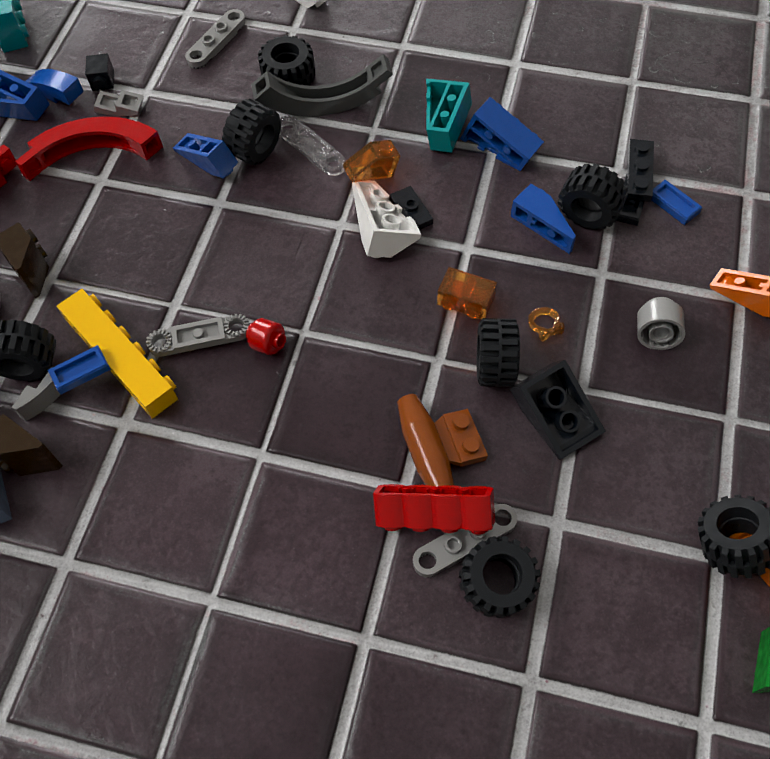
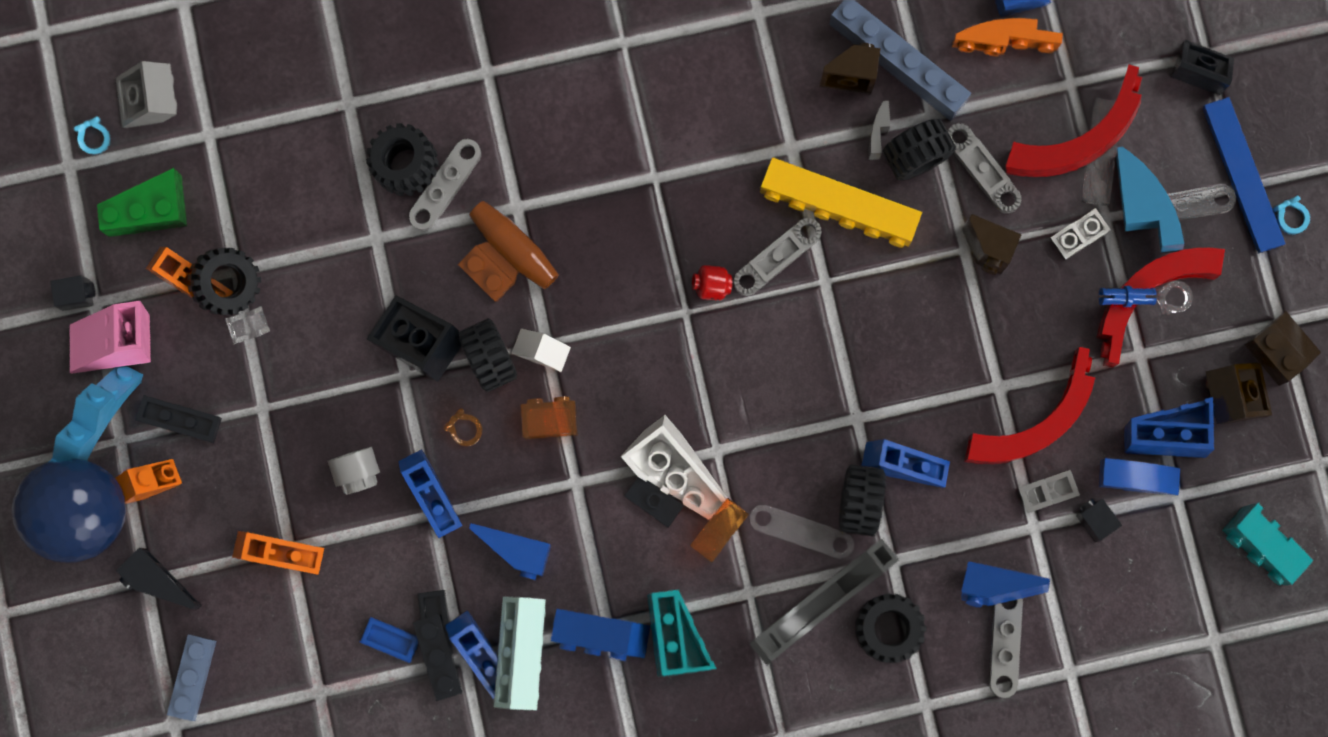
camera: 155 degrees right, 20 degrees up
(79, 369) = (851, 159): blue tile -> none
(196, 57) = (997, 585): none -> blue slope
(434, 507) = (483, 185): red brick -> none
(447, 353) = (541, 349): none -> white slope
(572, 146) = (519, 653): none -> light aqua brick
(593, 196) = (469, 580): black tyre -> none
(599, 285) = (429, 493): none -> blue slope
(603, 153) = (475, 649): none -> blue slope
(725, 481) = (247, 325): none -> clear brick

